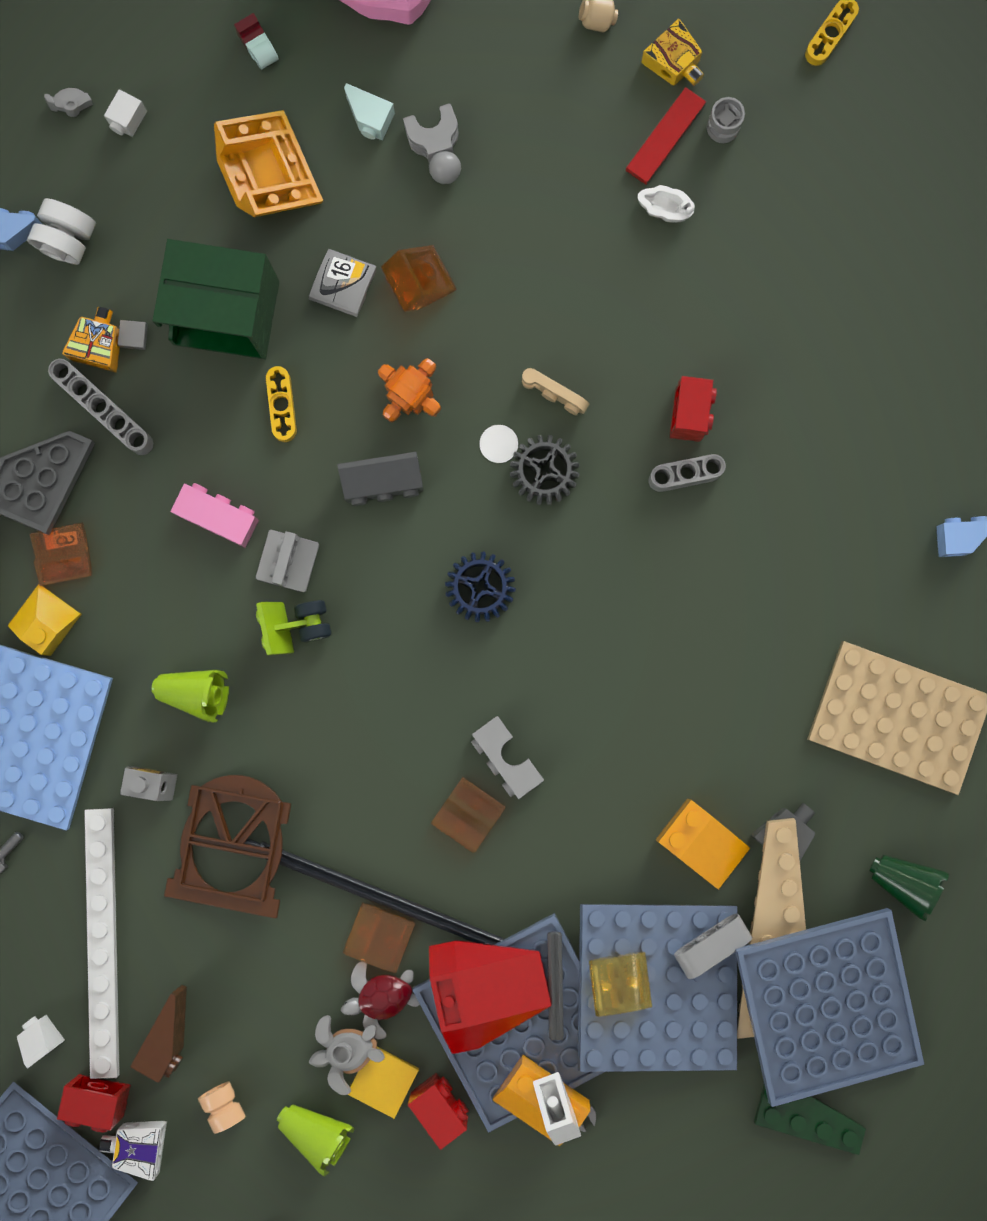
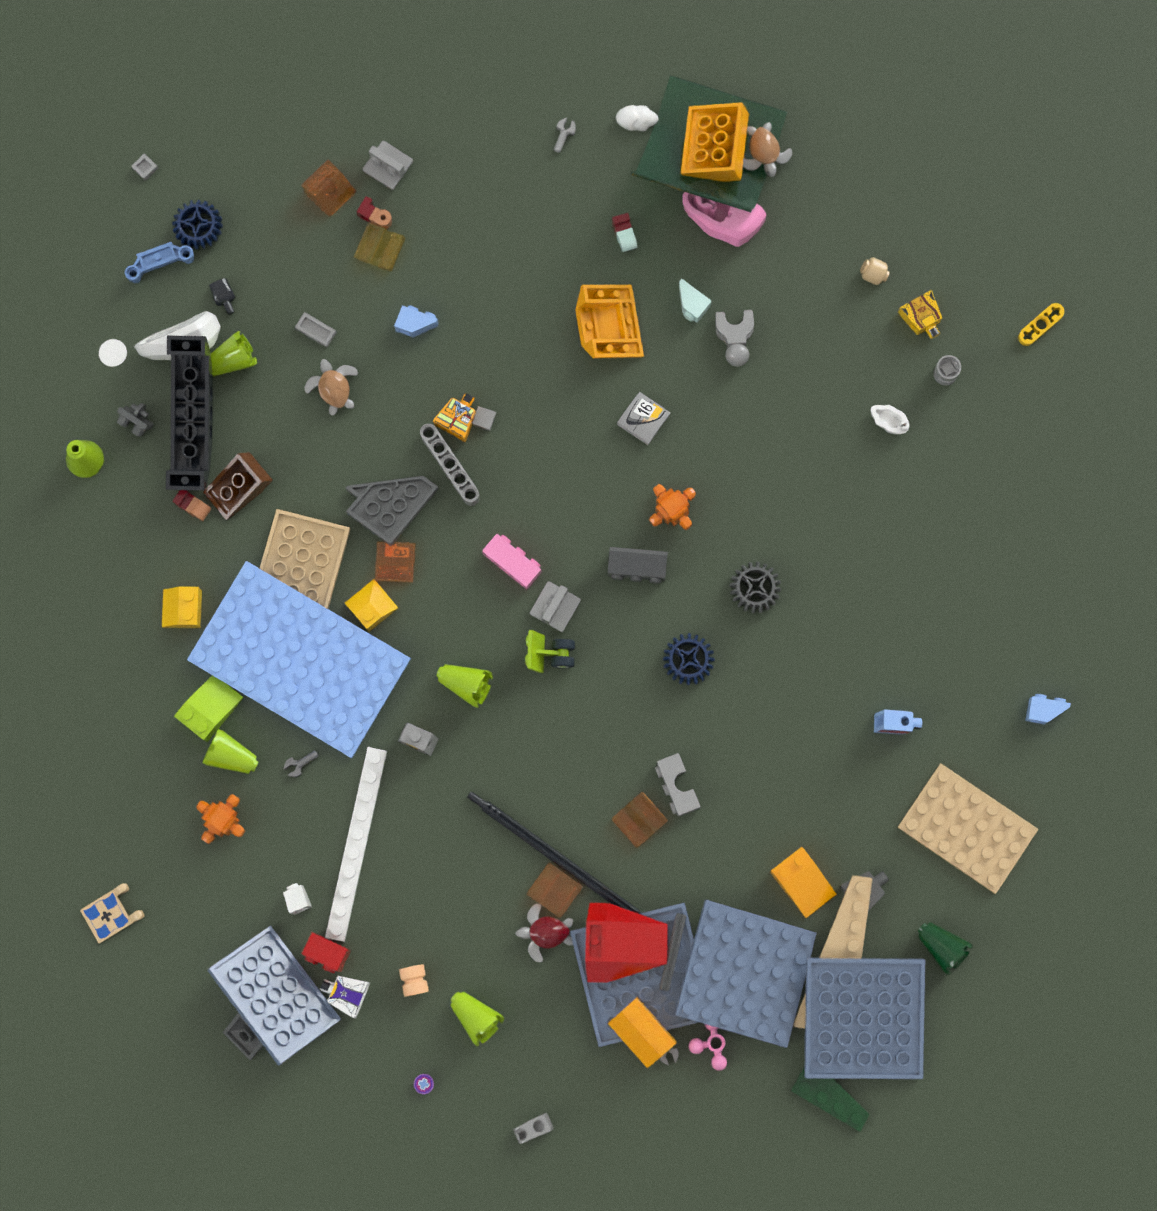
camera: 15 degrees right, 5 degrees down
(59, 234) = (453, 337): white wheel -> none
(69, 101) = (480, 241): light grey piece -> none
(125, 113) = (518, 260): white brick -> none
(165, 1041) = (385, 922): reddish brown slope -> none
(216, 298) = (553, 410): dark green piece -> none
(268, 807) = (499, 777): reddish brown window -> none
(285, 385) = (581, 508): yellow beam -> none
(345, 1051) = (511, 963): light grey animal -> none
(384, 1083) = (532, 993): yellow tile -> none
(418, 277) = (698, 428): clear orange slope -> none
(439, 1110) = (568, 1020): red brick -> none
(498, 443) = (727, 560): white sticker -> none
(554, 391) = (776, 533): tan plate -> none
(556, 1109) = (653, 1032): white slope -> none
(617, 1097) = (697, 1046): none -> bright pink piece
(620, 984) = (719, 960): clear yellow slope -> none
(665, 136) = (902, 370): red tile -> none
(692, 408) = (870, 571): red brick -> none
(698, 467) = (865, 610): light grey beam -> none
(713, 946) = (791, 953): light grey beam -> none
(773, 602) = (896, 722): none -> light blue torso

